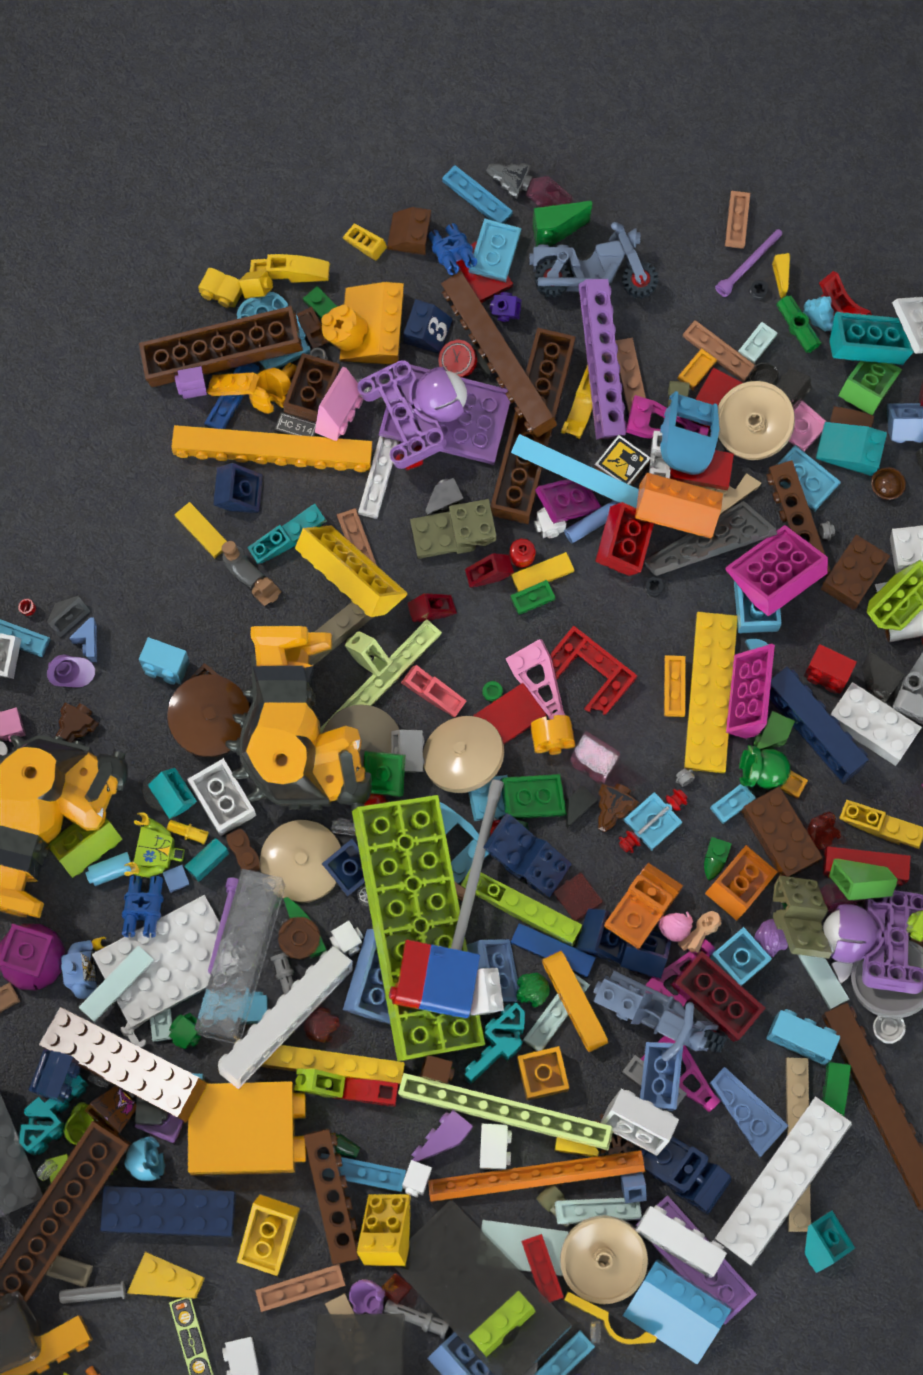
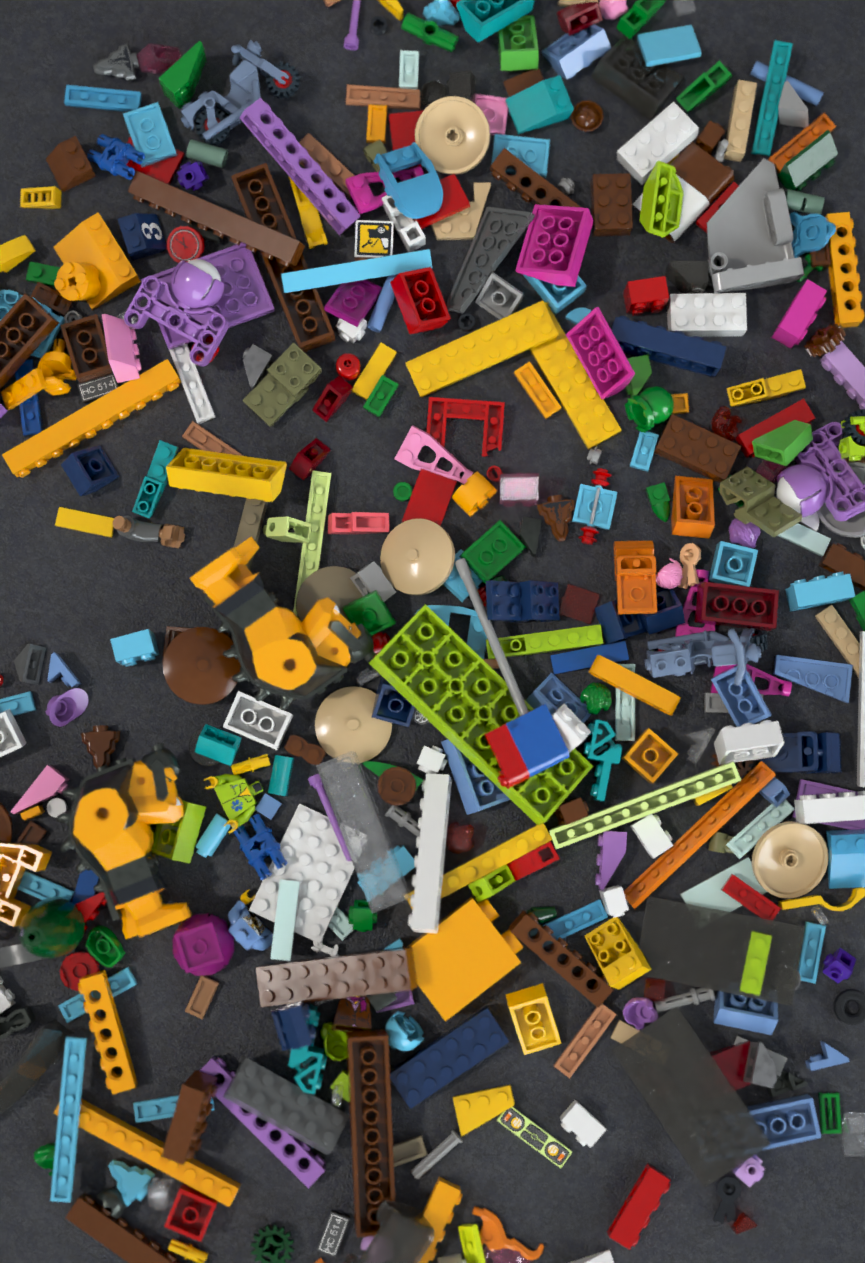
camera: 40 degrees left, 10 degrees up
(532, 297) = (207, 153): none -> sand green pin
(579, 729) = (490, 475): none -> red hinge
(601, 1093) = (701, 739): none -> clear slope
(650, 617) = (482, 349): none -> yellow plate
(678, 505) = (443, 245): orange slope -> none
(698, 585) = (499, 297): none -> light grey slope

